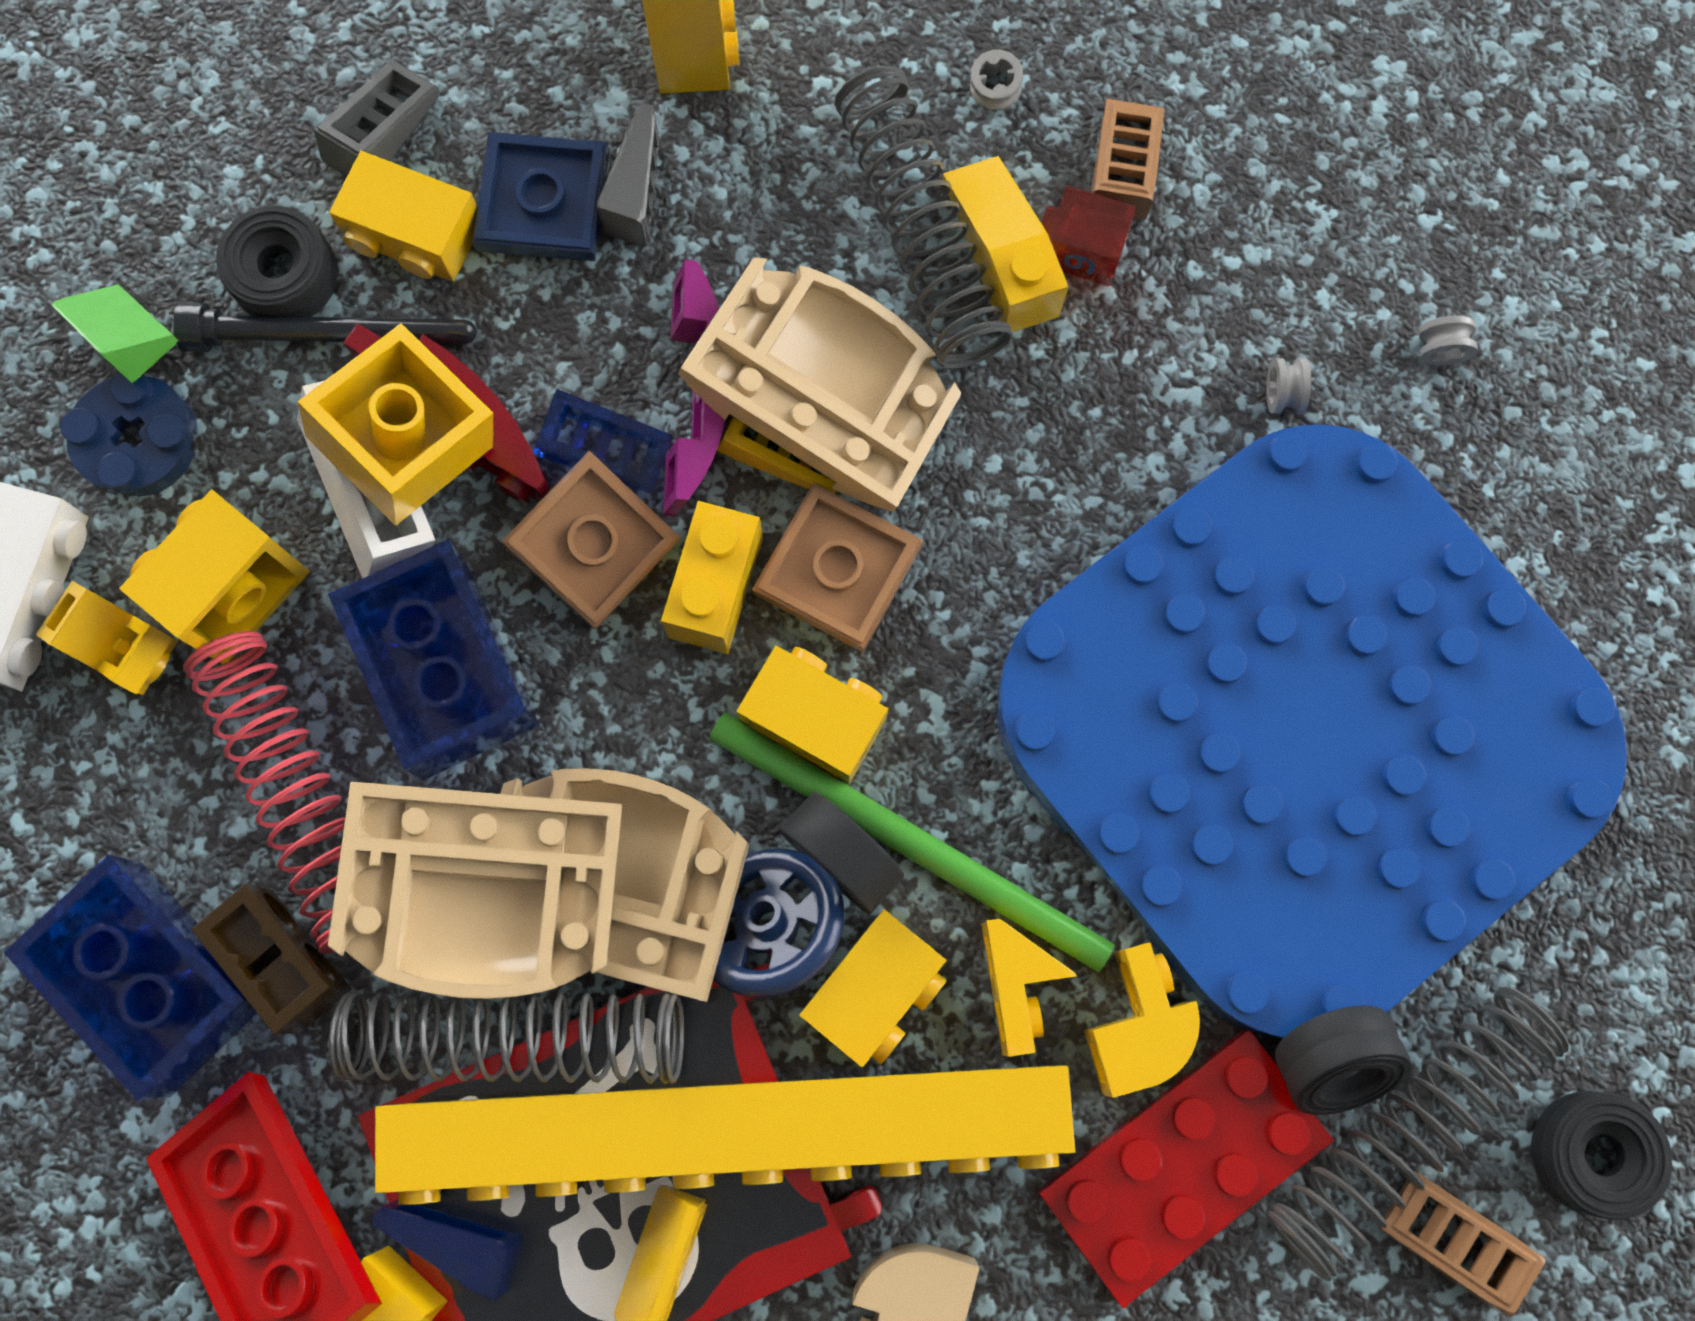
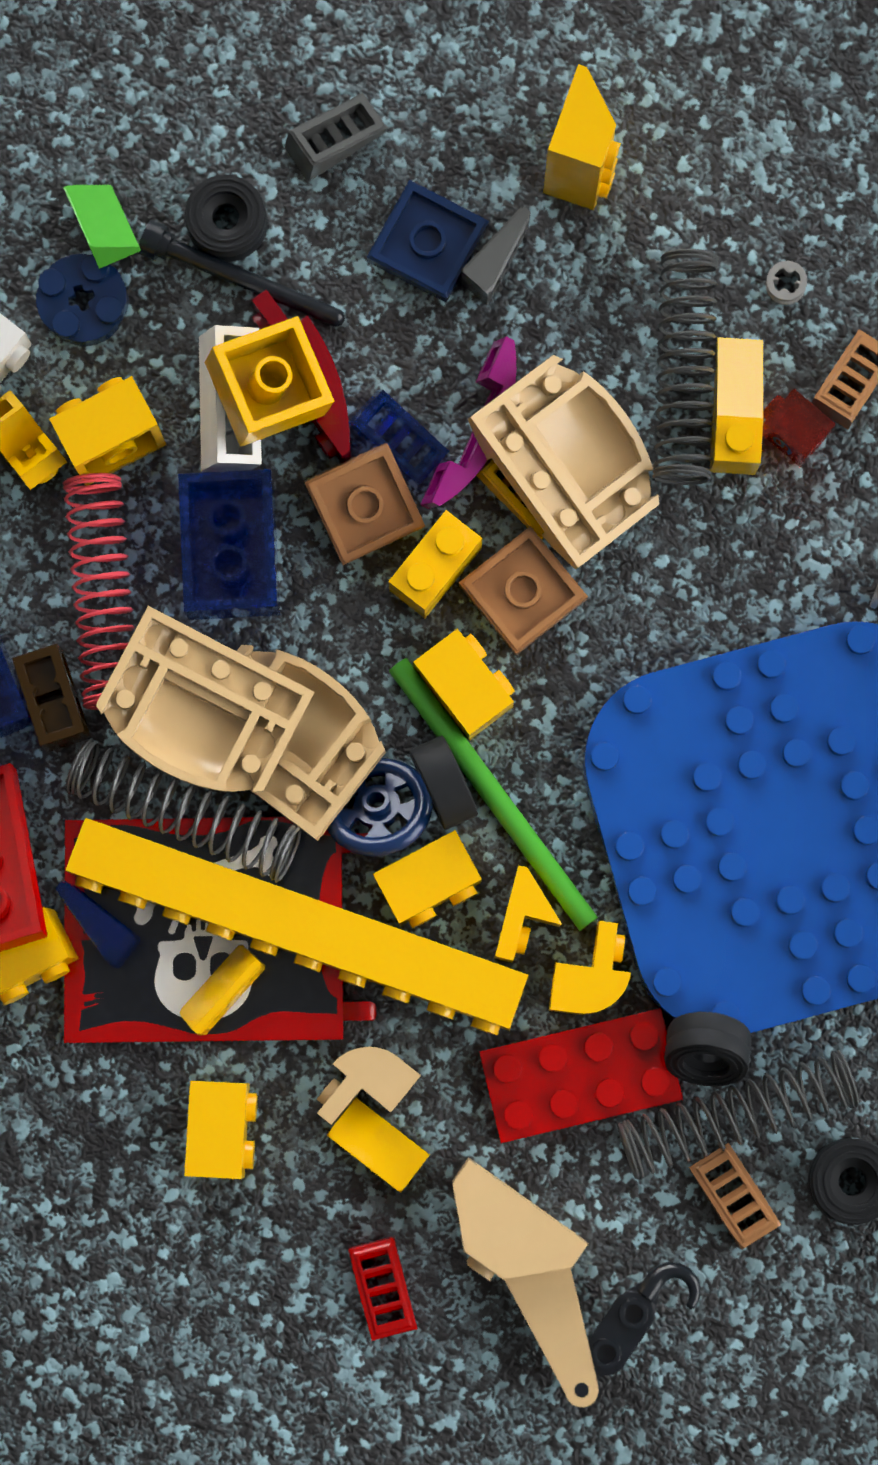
camera: 25 degrees right, 5 degrees up
(405, 217) = (327, 220): yellow brick -> none

